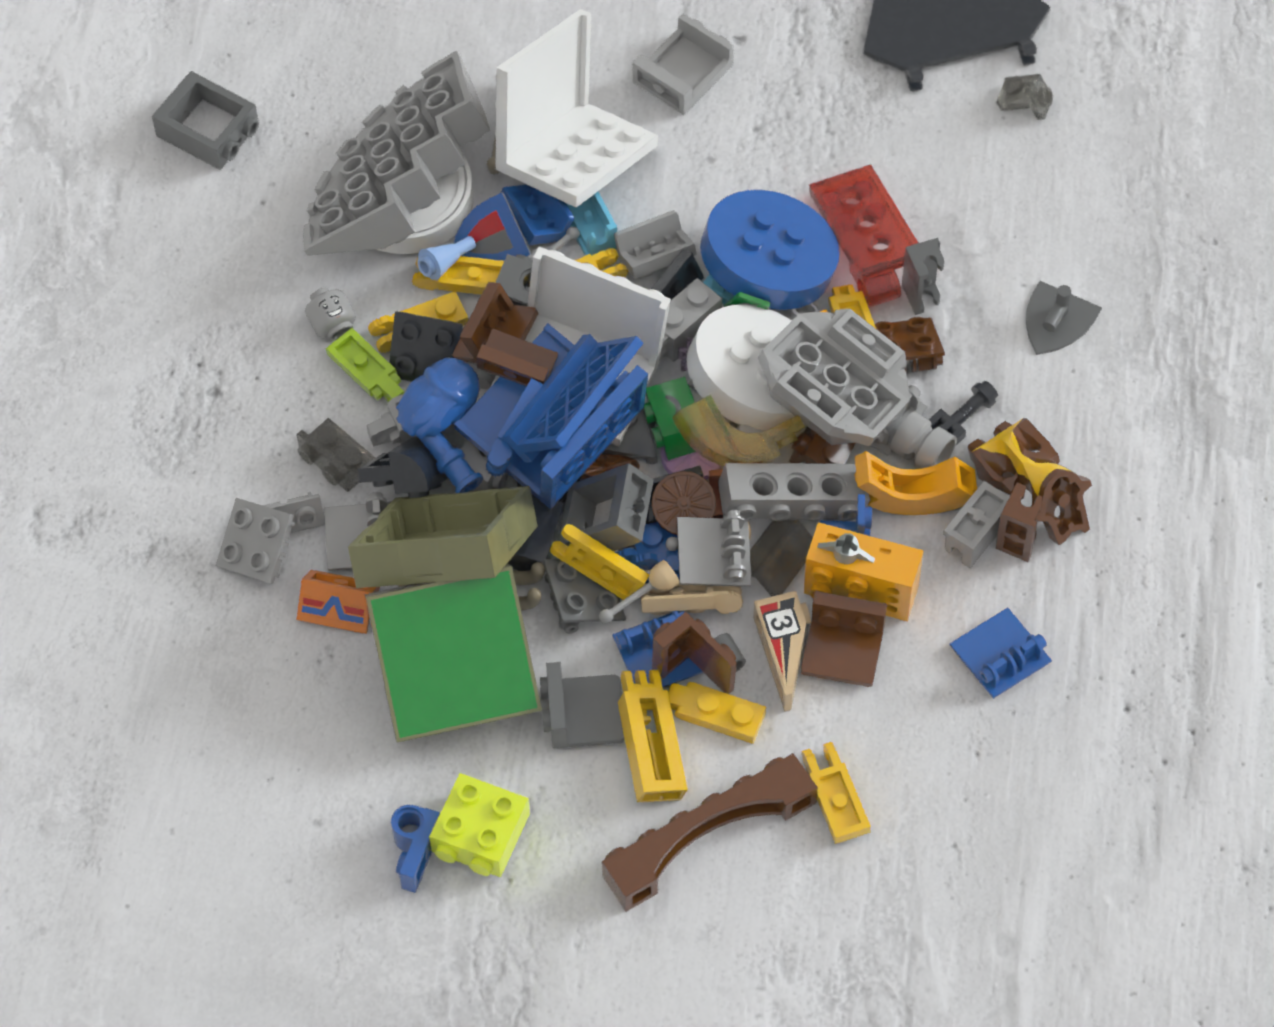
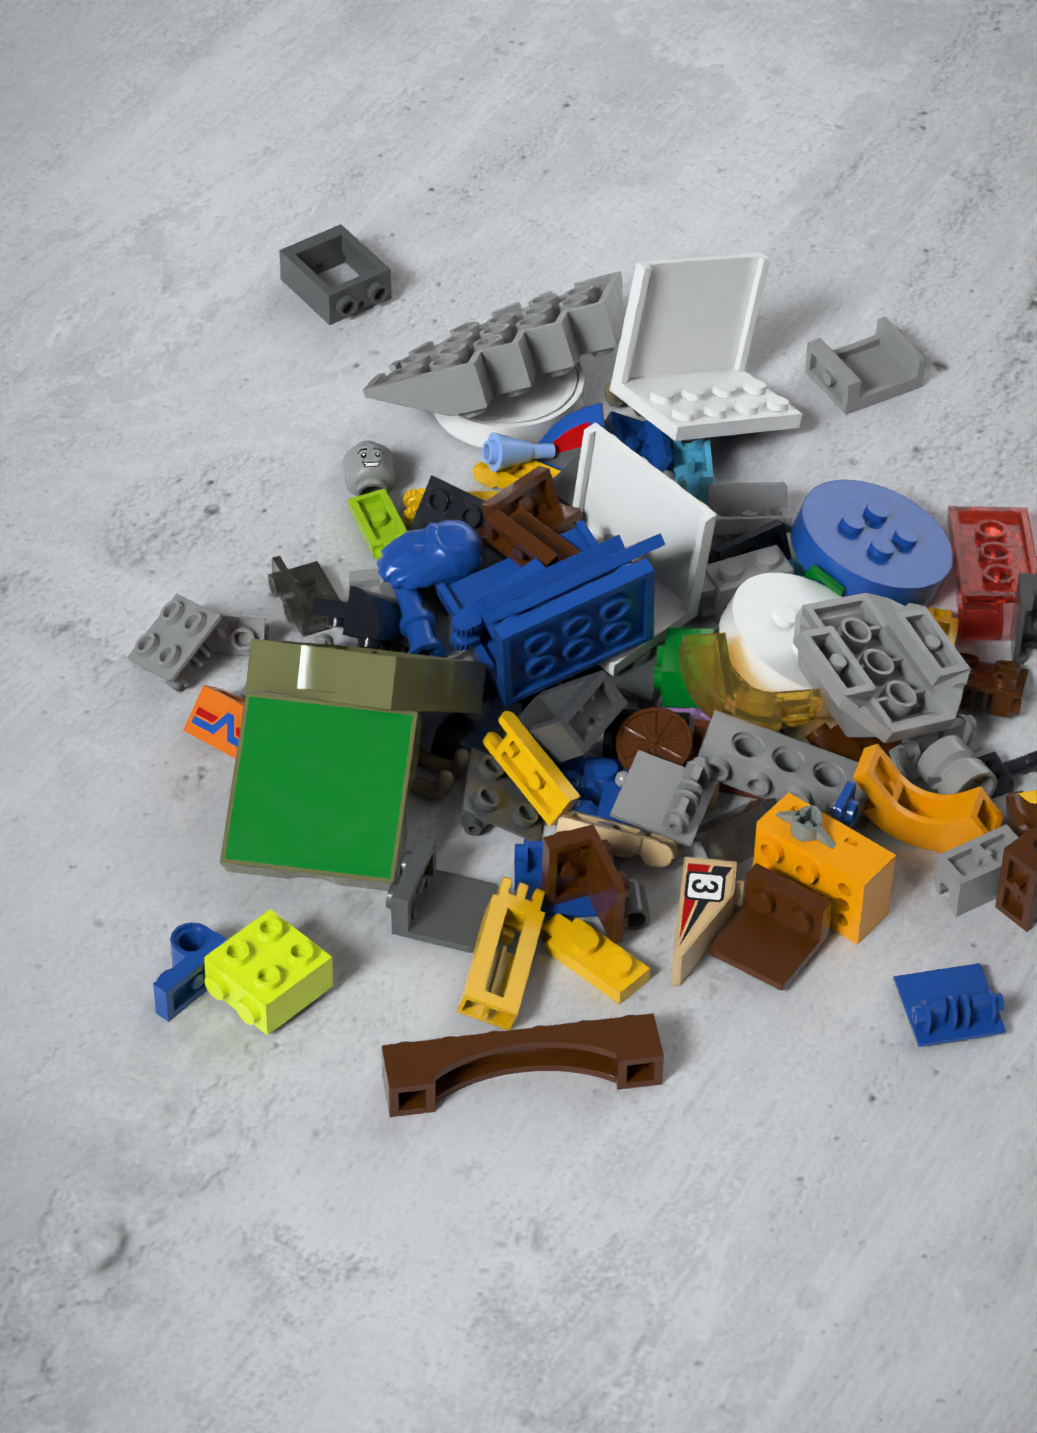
camera: 20 degrees right, 15 degrees down
(660, 579) = (591, 804): hinge -> none
(837, 796) = (686, 1081): yellow hinge -> none

